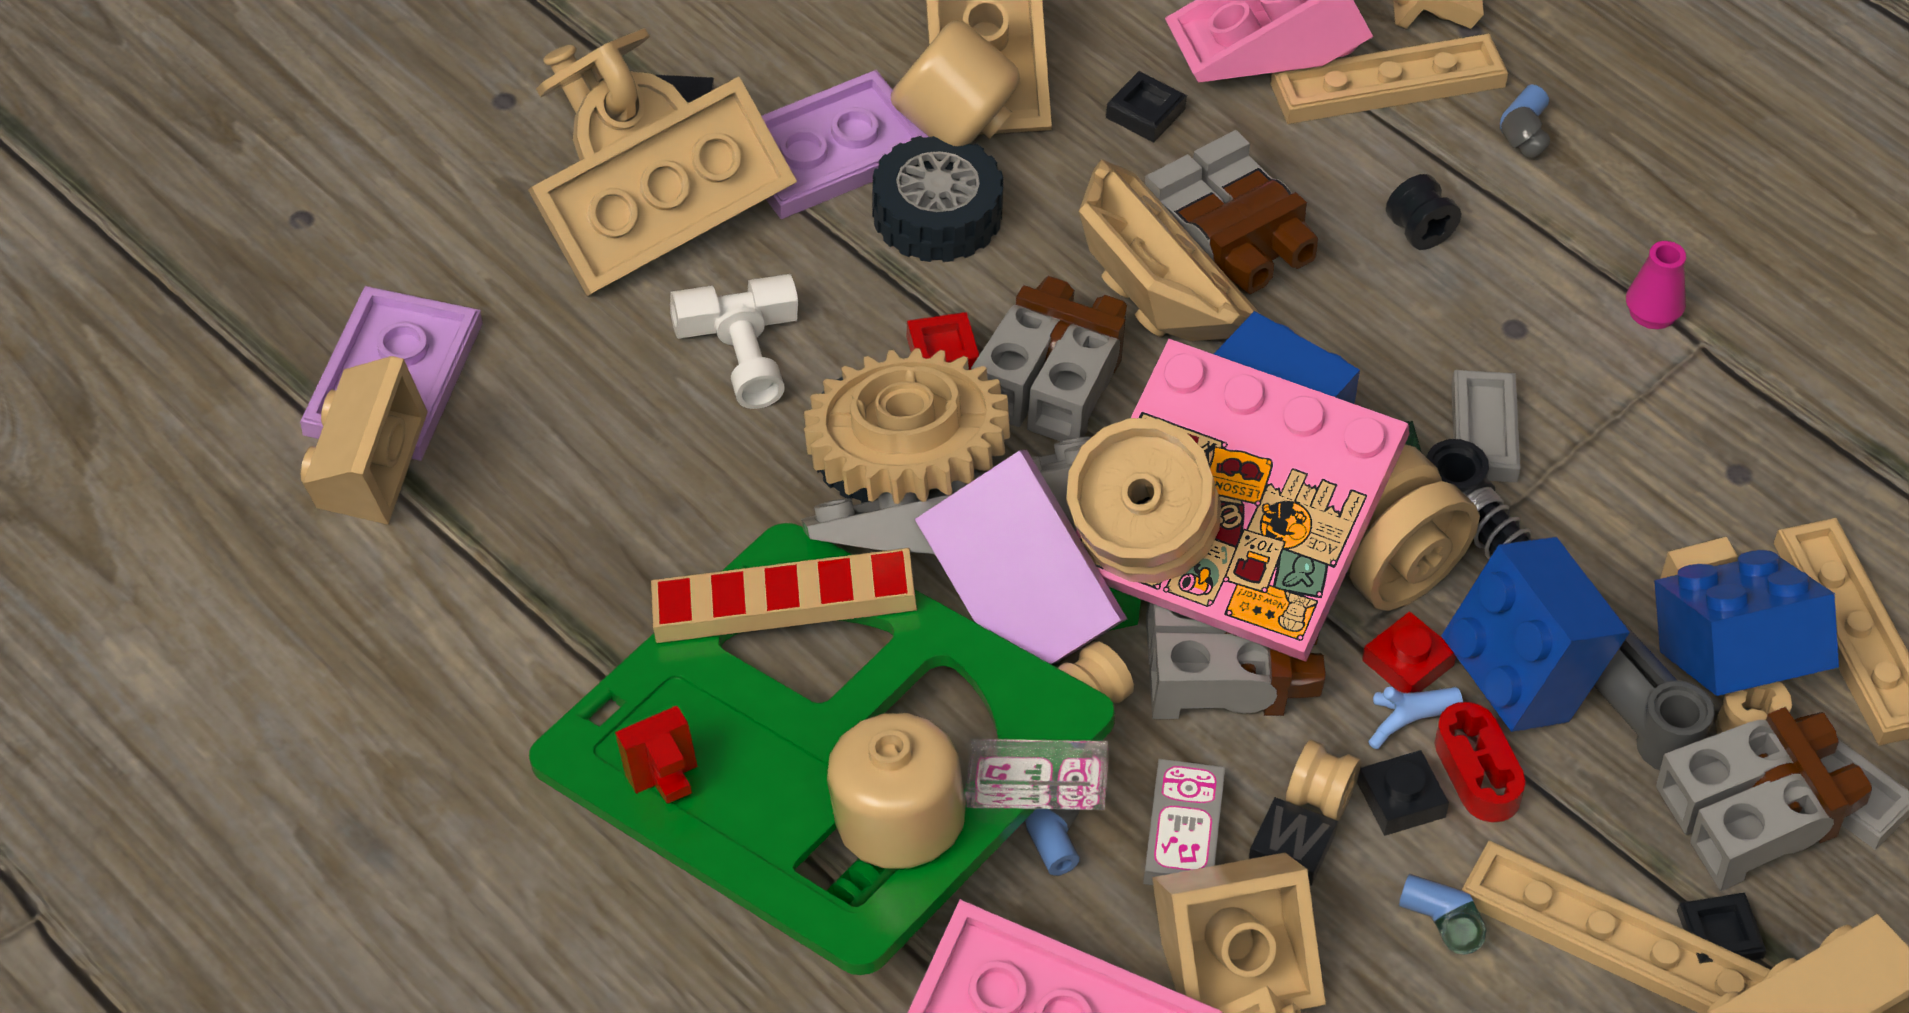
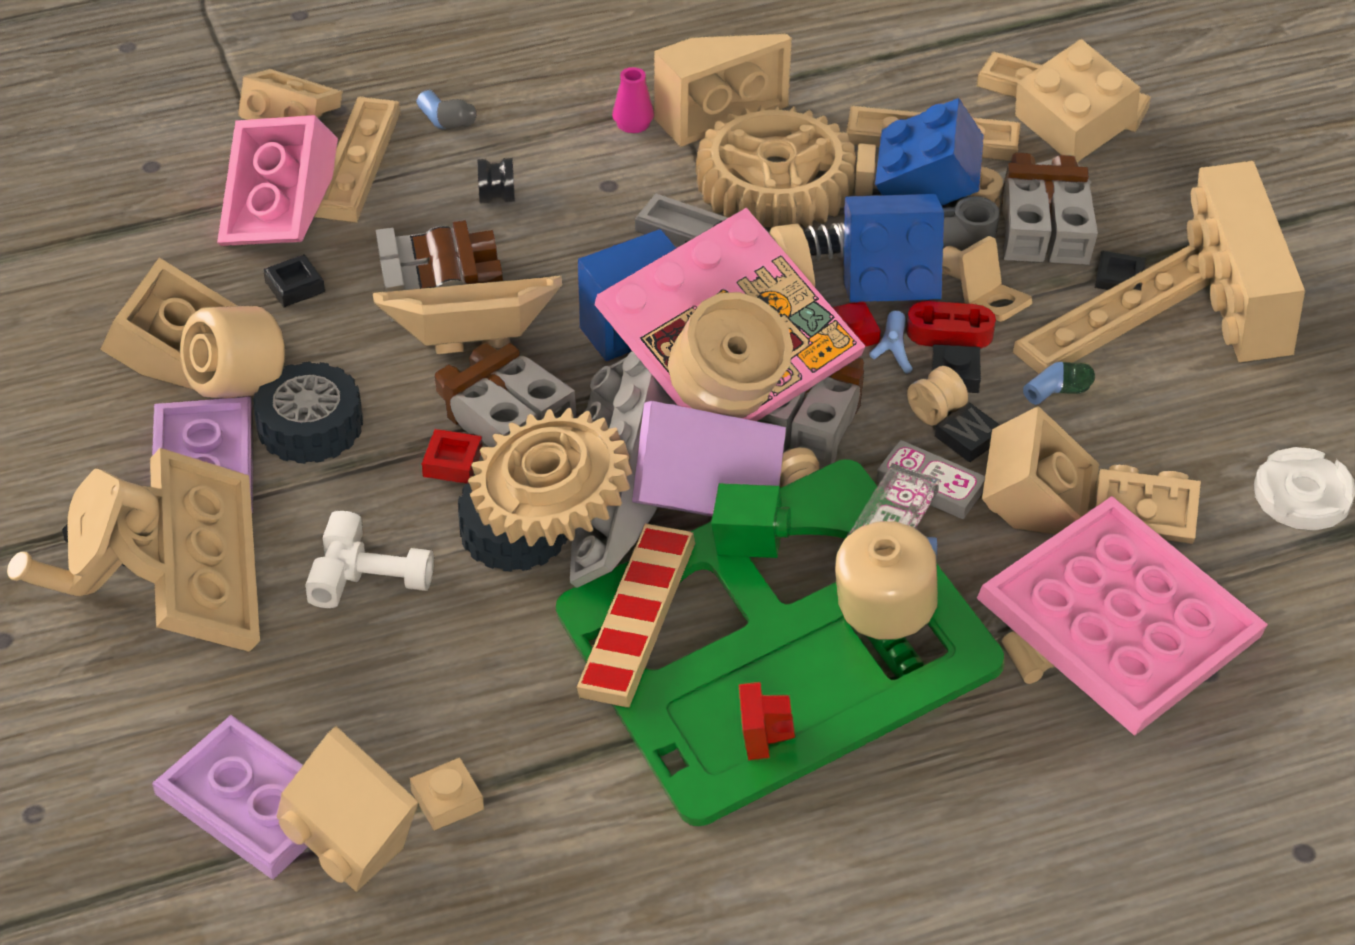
camera: 65 degrees left, 5 degrees down
(467, 529) = (446, 794): none -> tan plate
(947, 635) = (749, 520): none -> green brick
(1575, 766) = (981, 277): none -> tan bracket
(1635, 515) = (738, 176): none -> tan gear
(1738, 353) = (718, 76): none -> tan slope

